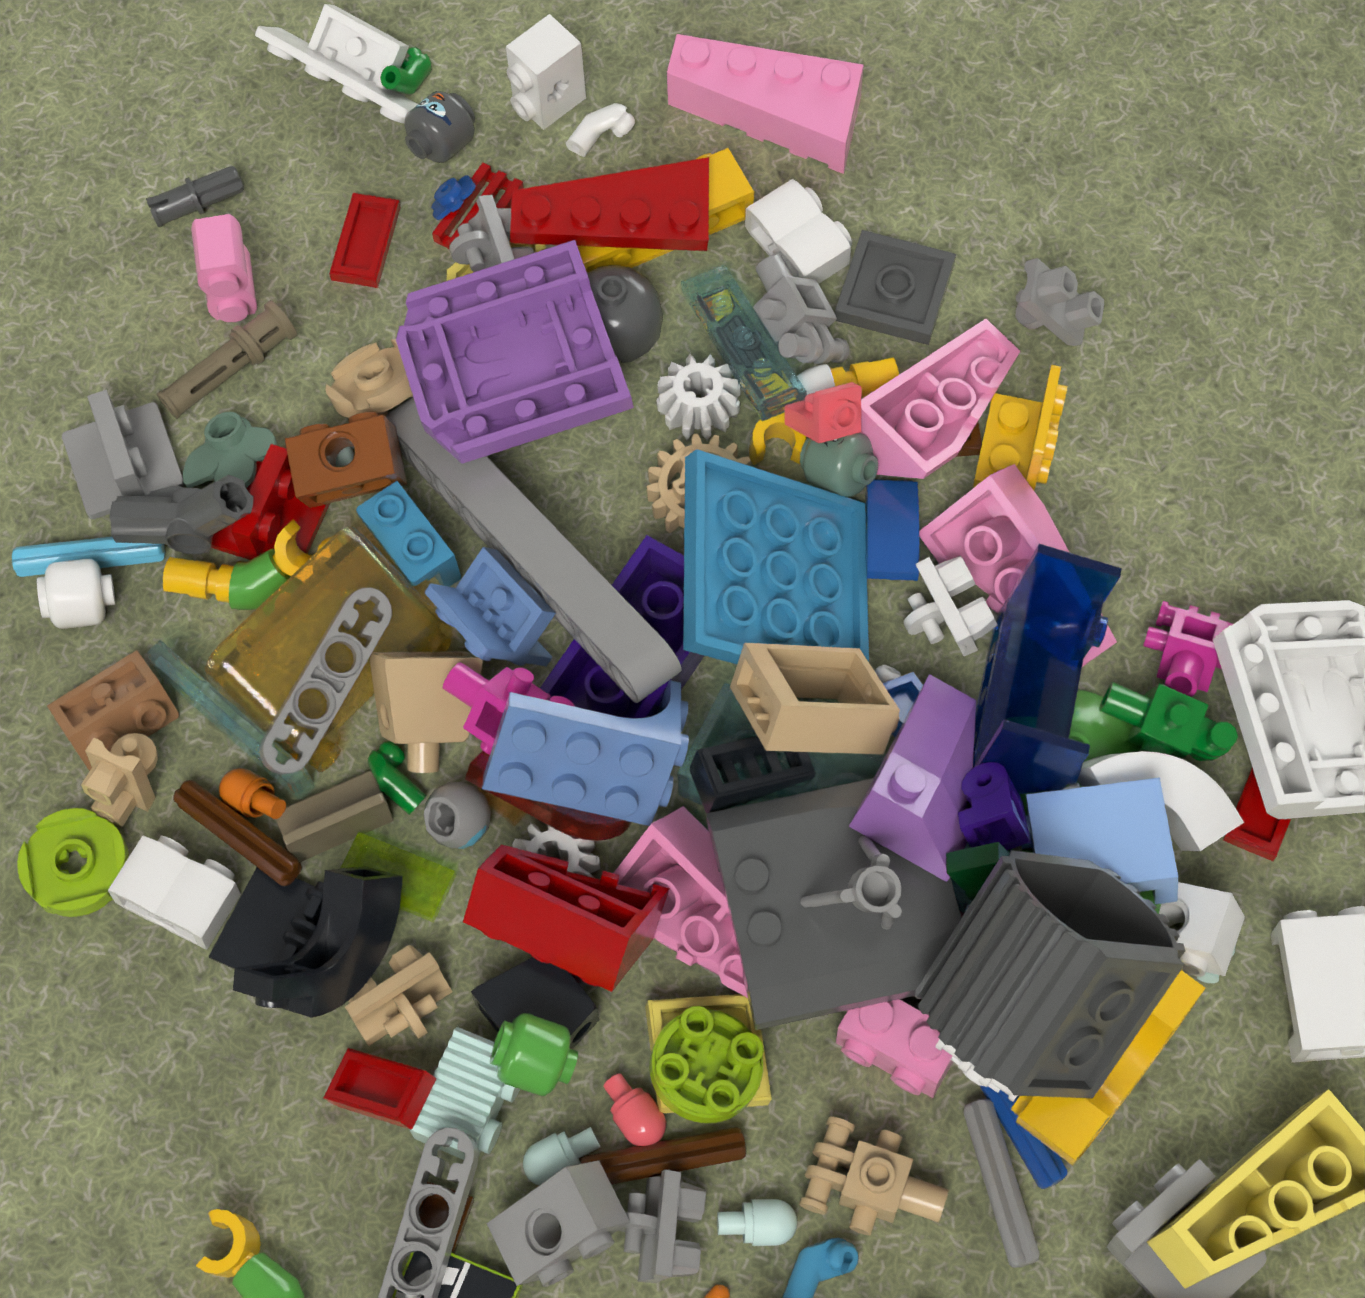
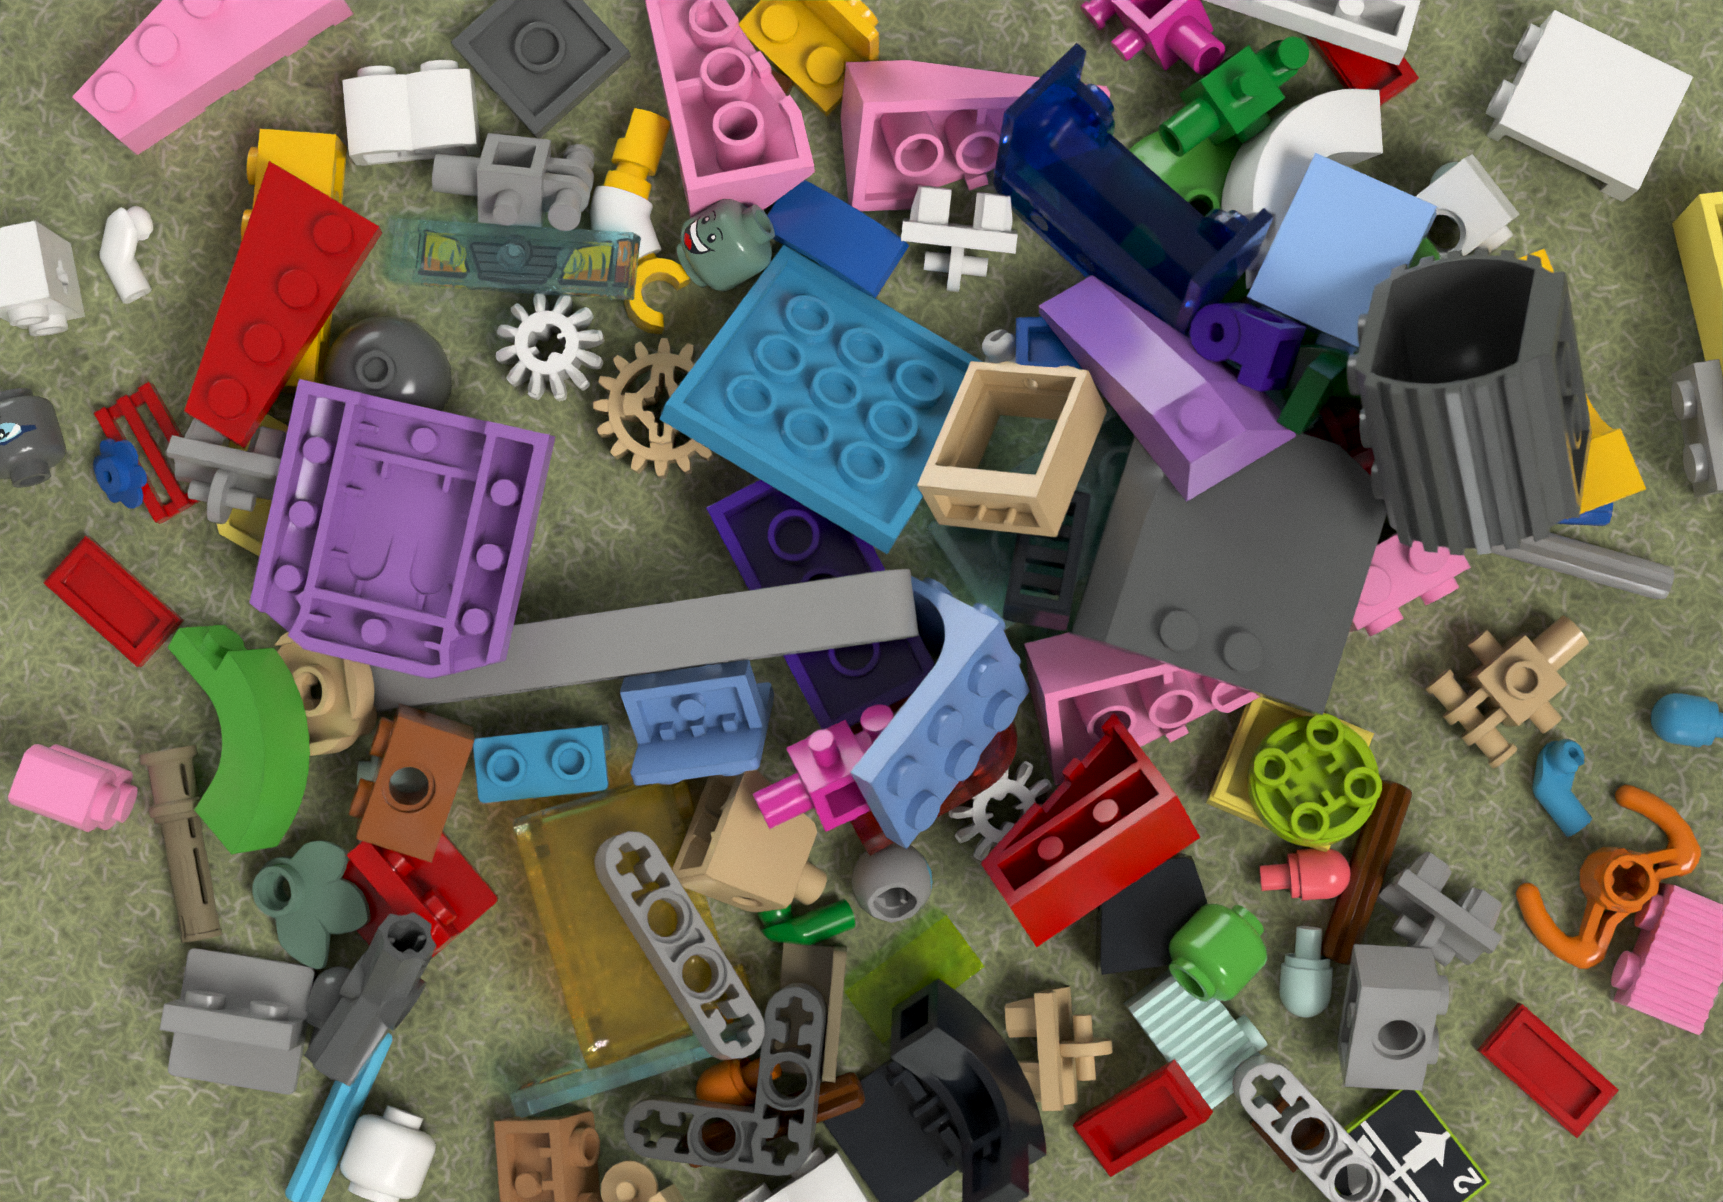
camera: 60 degrees left, 20 degrees up
(227, 813) = (750, 1123): none -> dark grey beam
(245, 583) = (488, 954): yellow piece -> none
(319, 361) = (262, 737): none -> bright green arch
(760, 1222) = (1484, 815): light aqua cylinder -> none
(827, 413) = (678, 231): coral bracket -> none
(869, 889) = (1295, 529): light grey plant -> none

